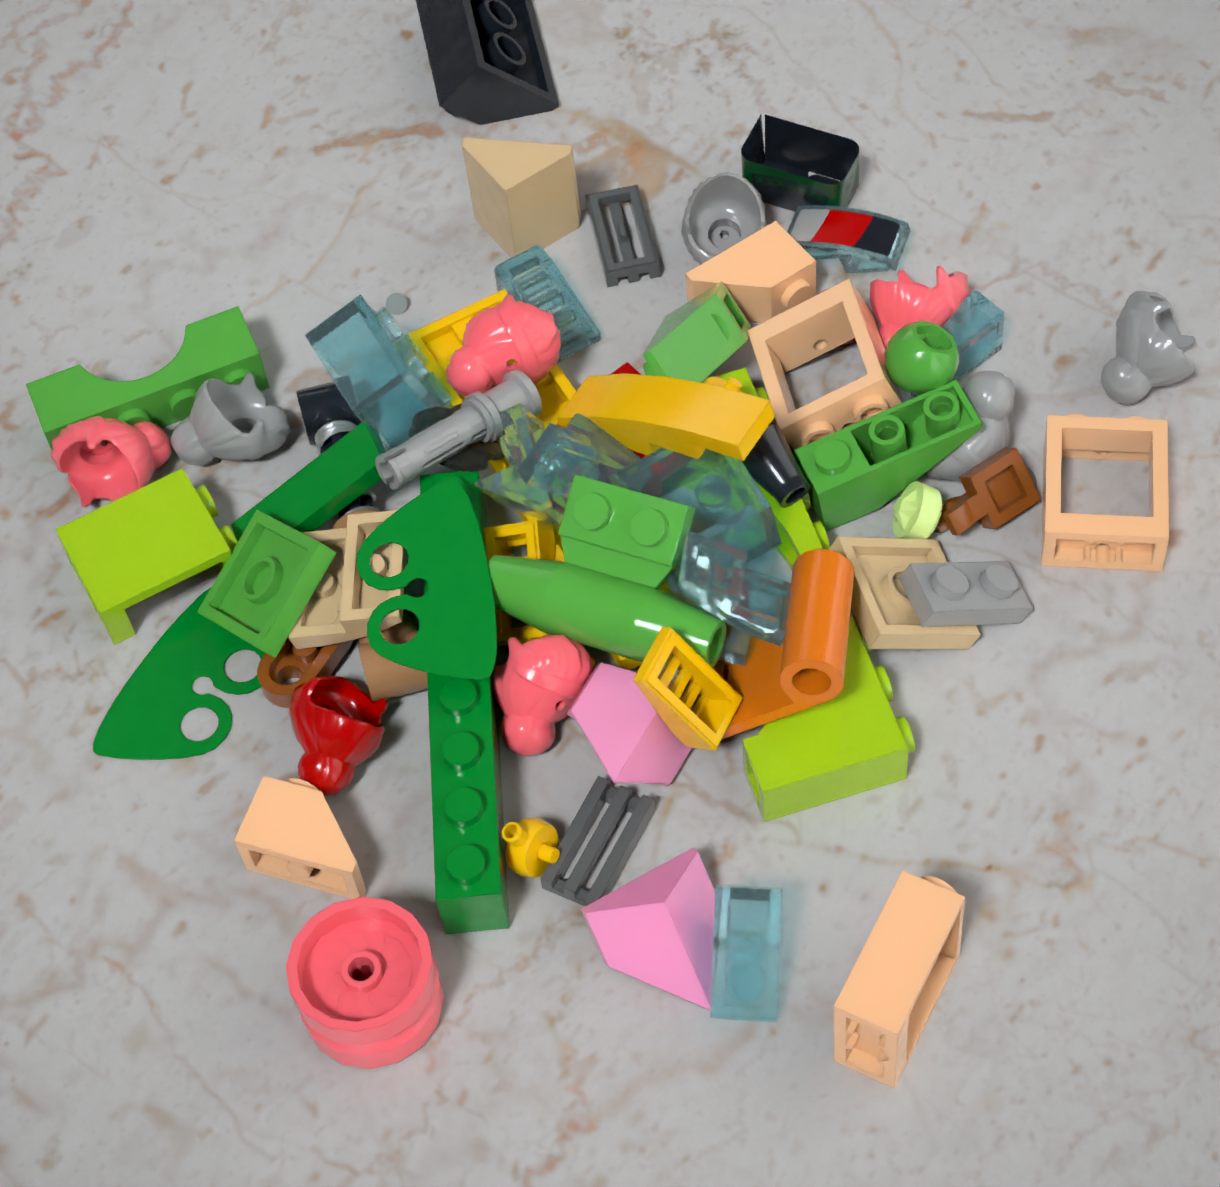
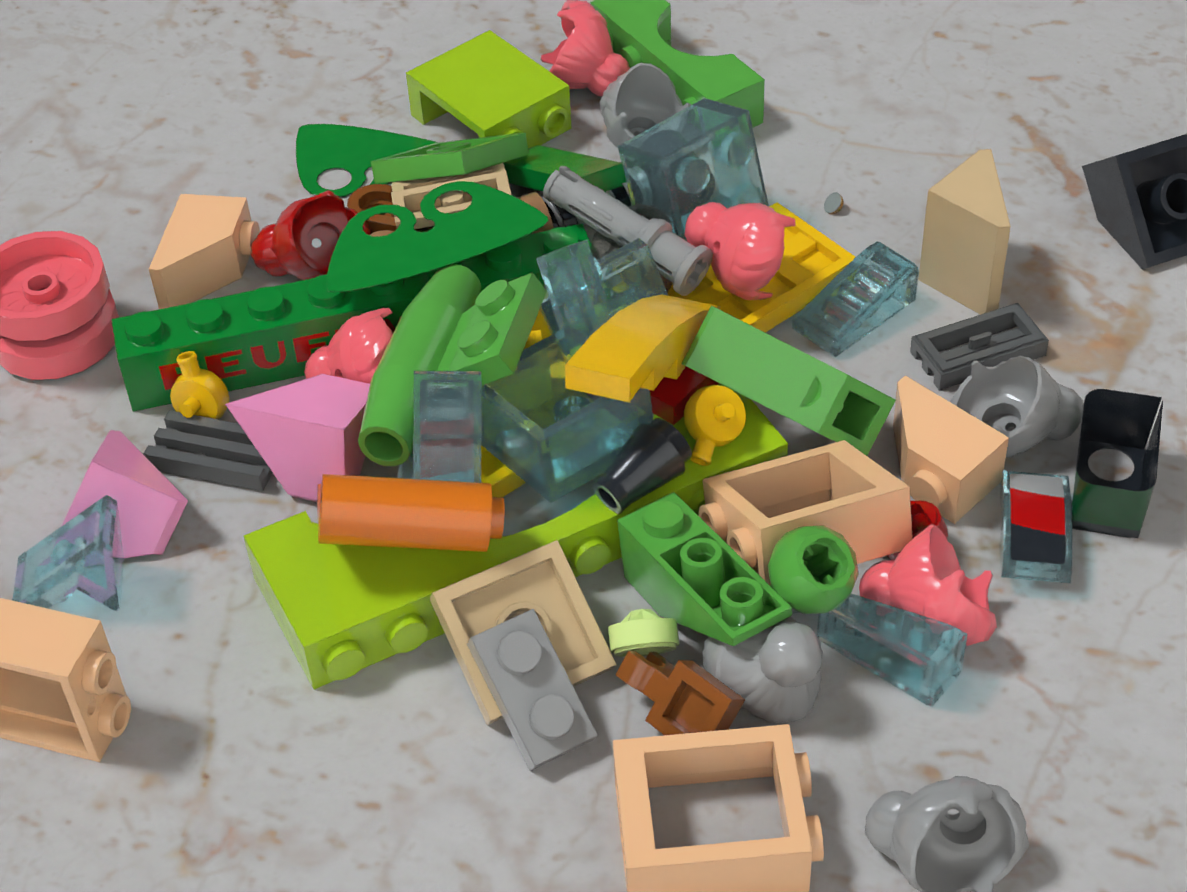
camera: 75 degrees right, 10 degrees down
(716, 700) = (306, 444): yellow slope -> none

